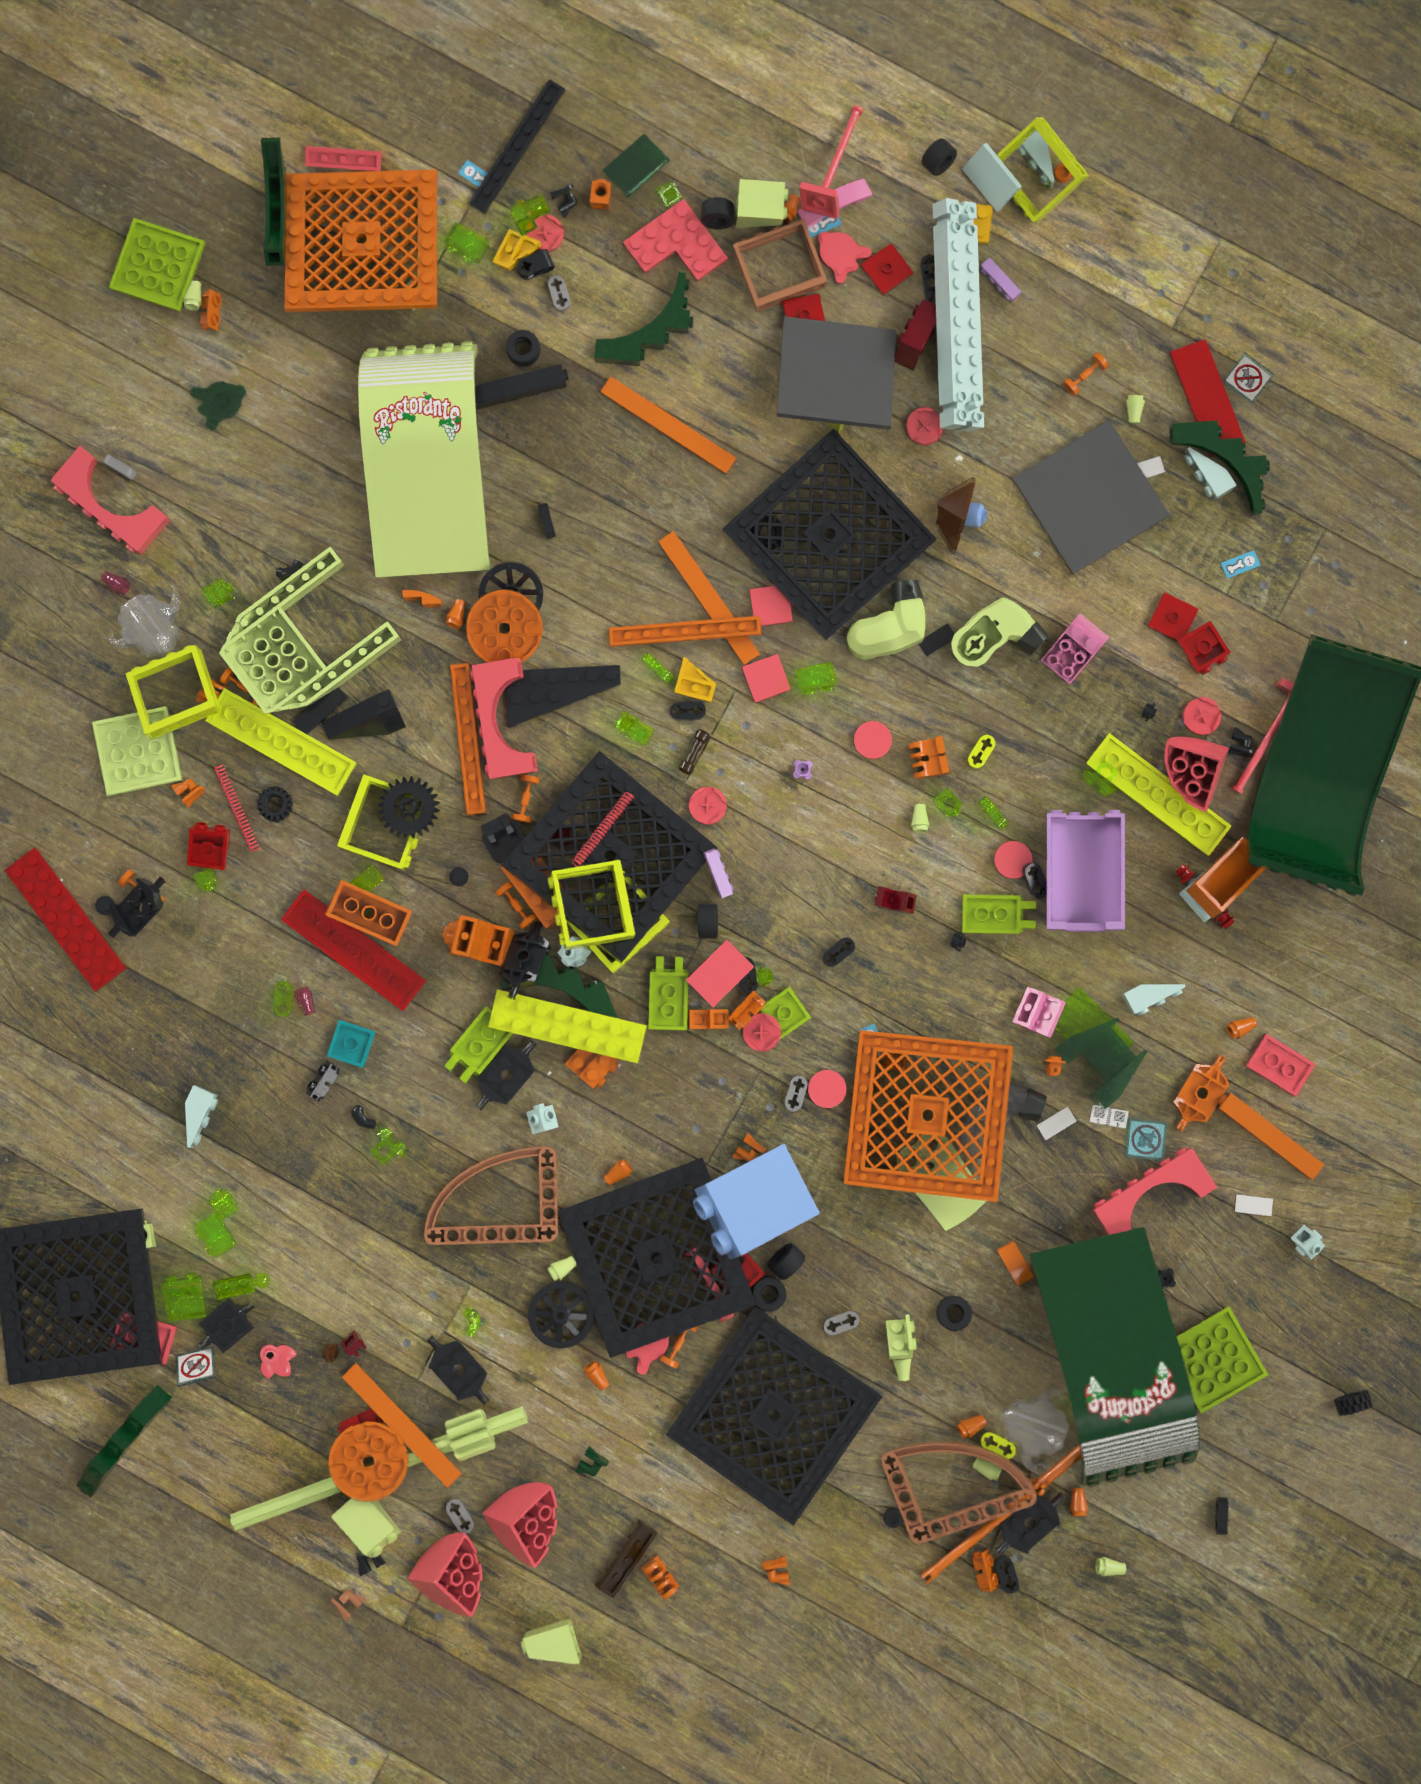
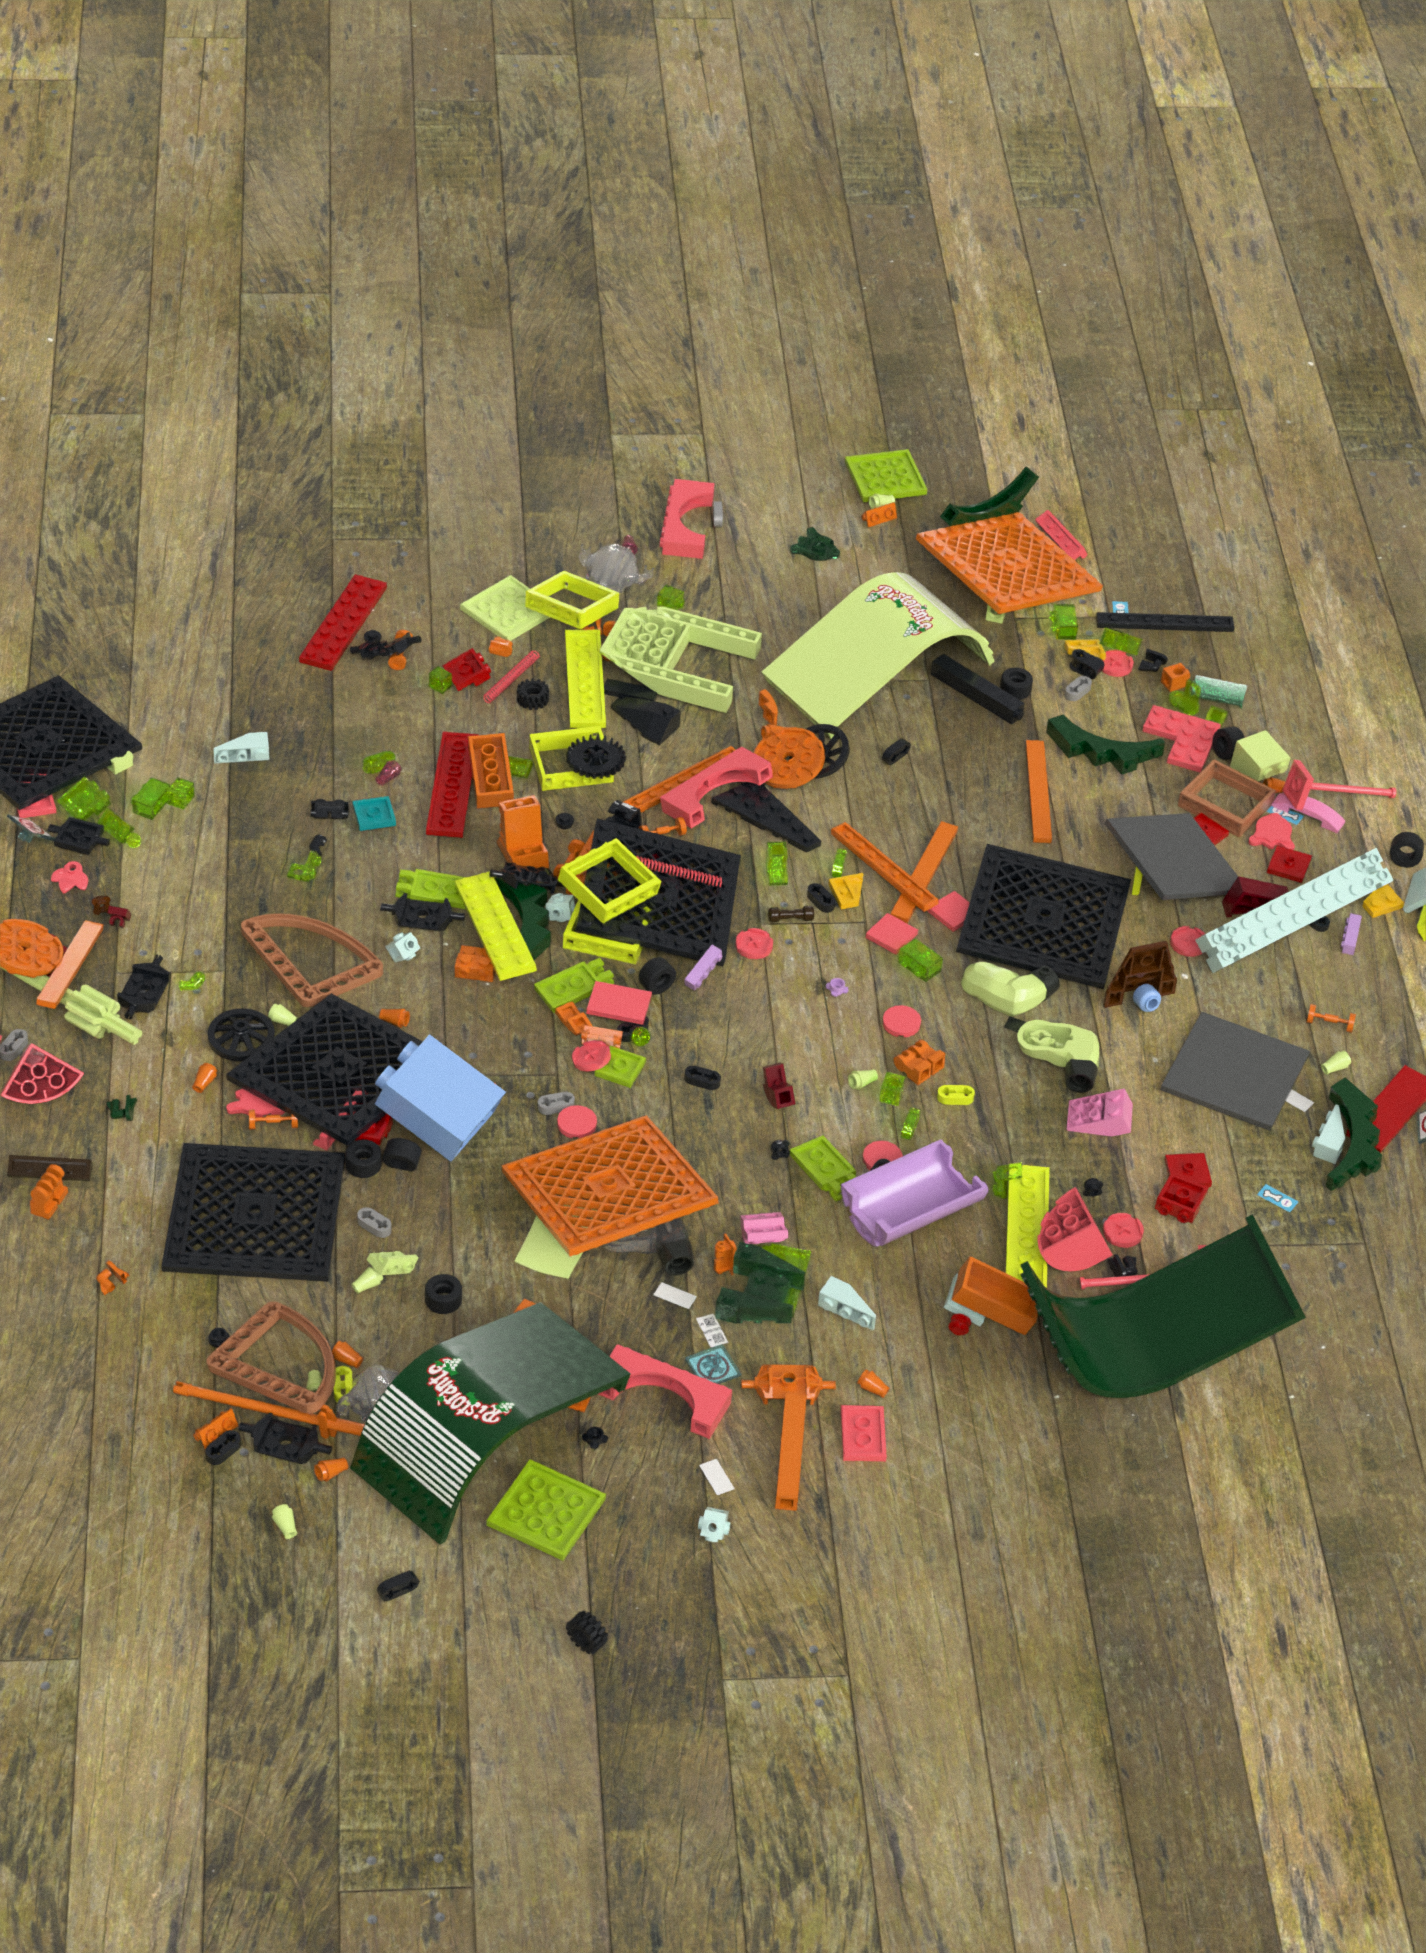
camera: 50 degrees right, 40 degrees down
(636, 209) = (1185, 701): none -> clear neon green bracket

